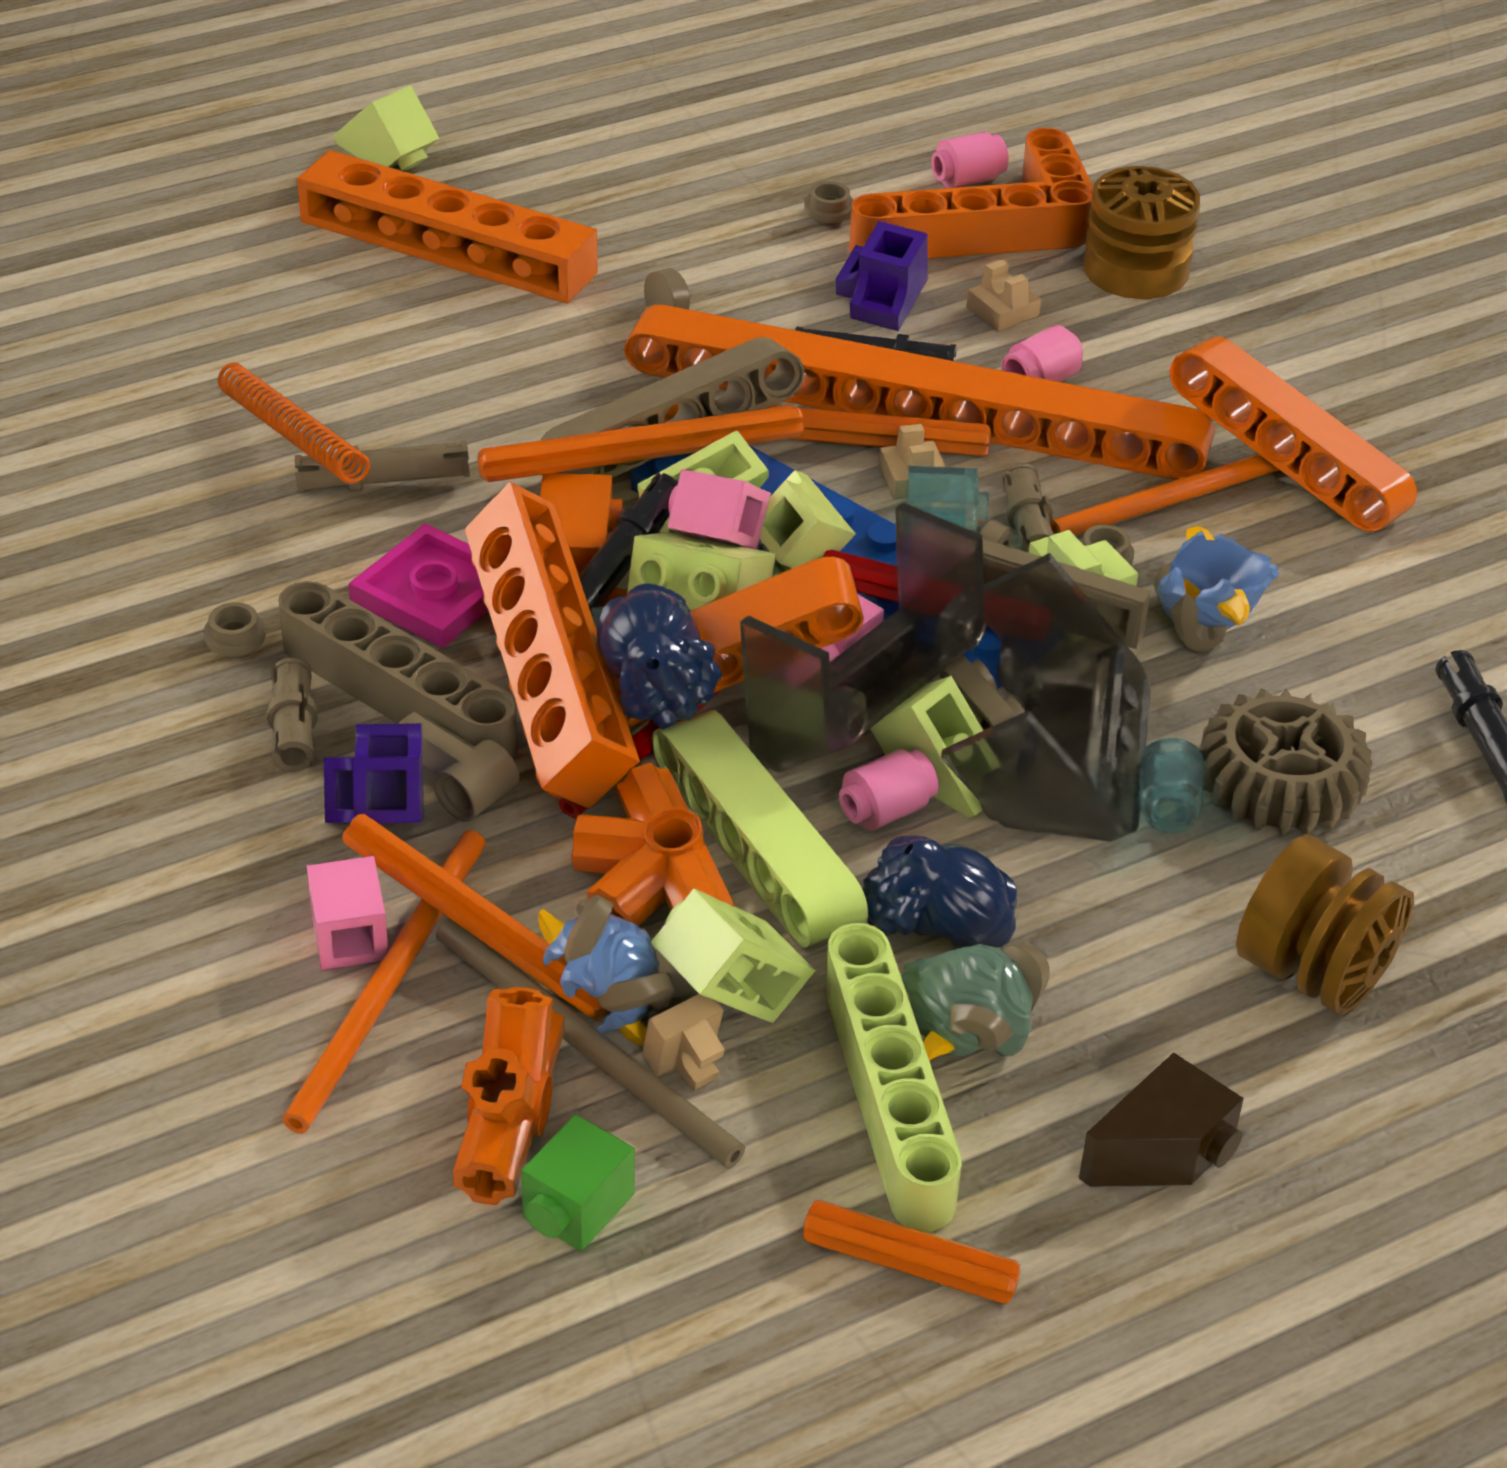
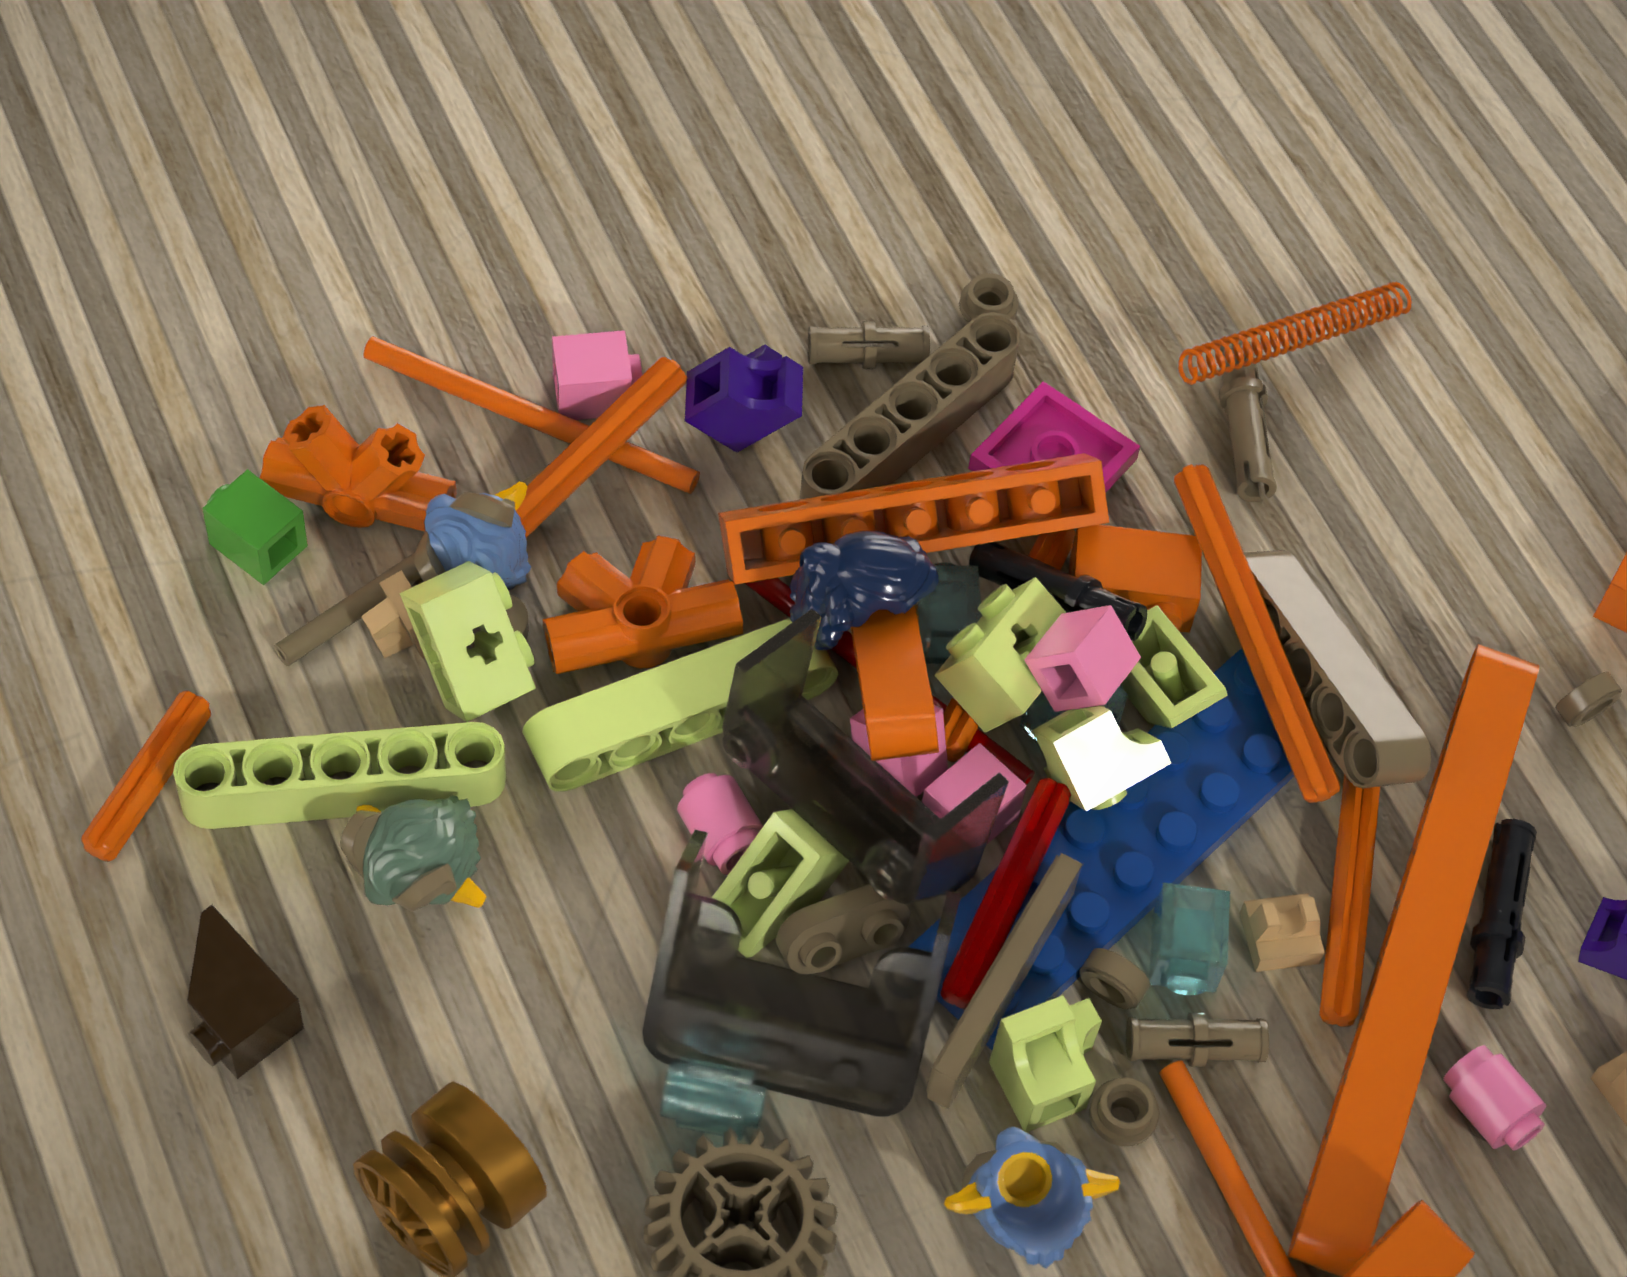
camera: 90 degrees right, 15 degrees up
(464, 775) = (773, 469): dark tan piece -> none
(940, 893) = (567, 854): dark blue hair -> none

